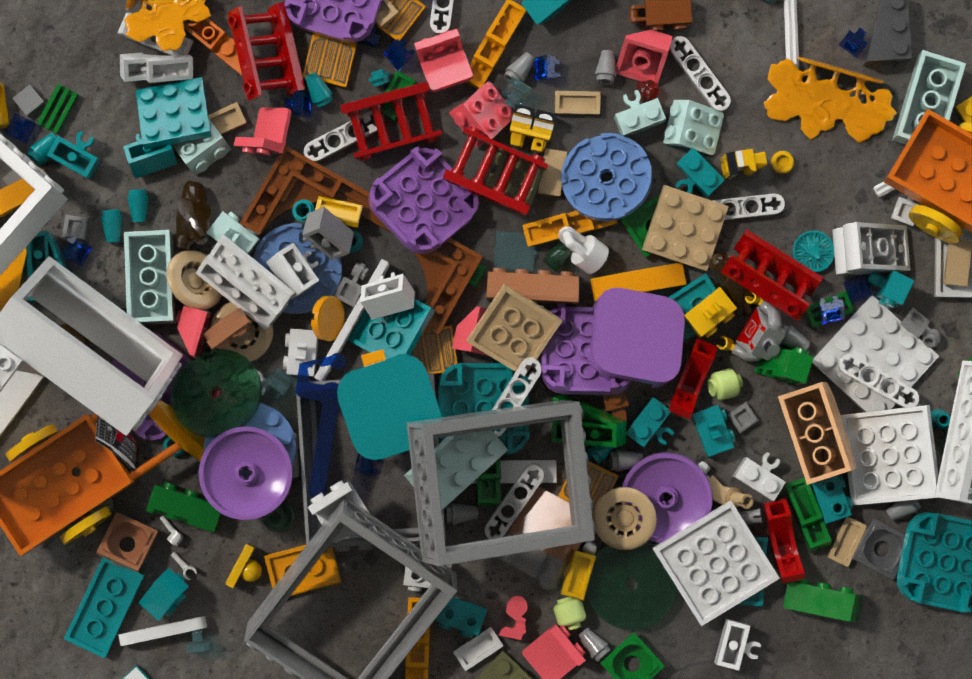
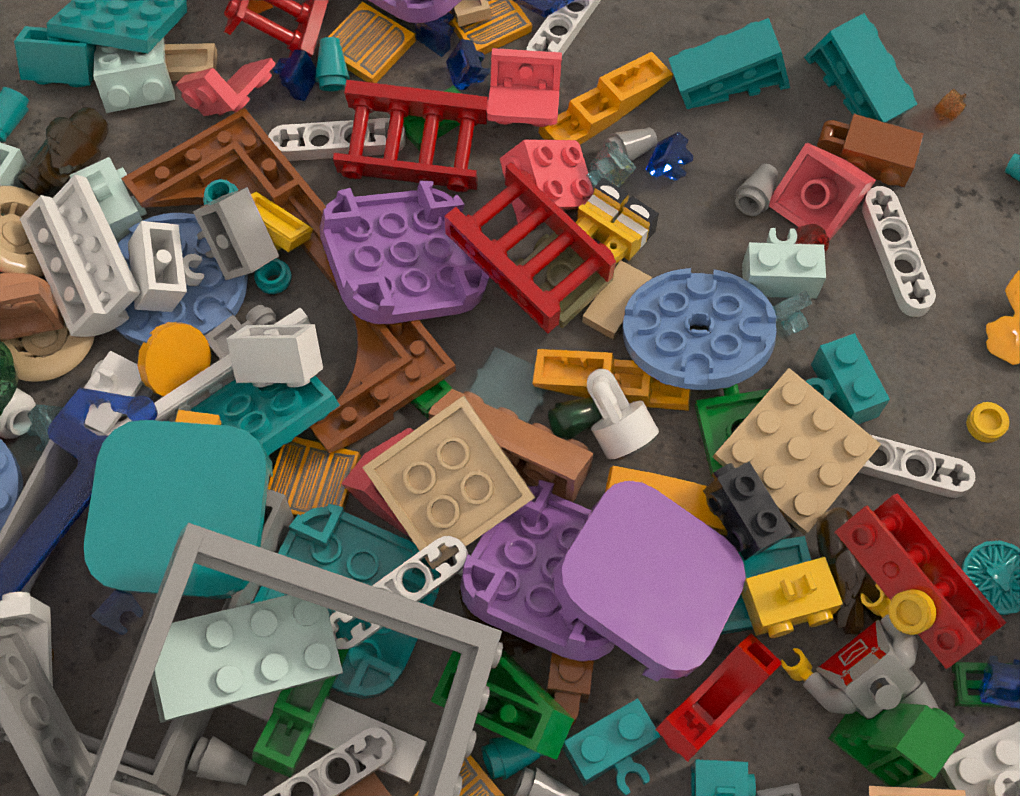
camera: 25 degrees right, 20 degrees down
(379, 77) = (424, 80): teal plate -> none
(577, 103) = (695, 221): tan tile -> none
(651, 142) = (790, 314): none -> clear light blue tile
(671, 277) = (746, 509): none -> black brick
(693, 126) = (866, 306): light aqua bracket -> none
(724, 384) = (771, 734): yellowish green head -> none
(742, 161) = (926, 387): yellow hips -> none
(772, 301) = (912, 611): none -> yellow tile

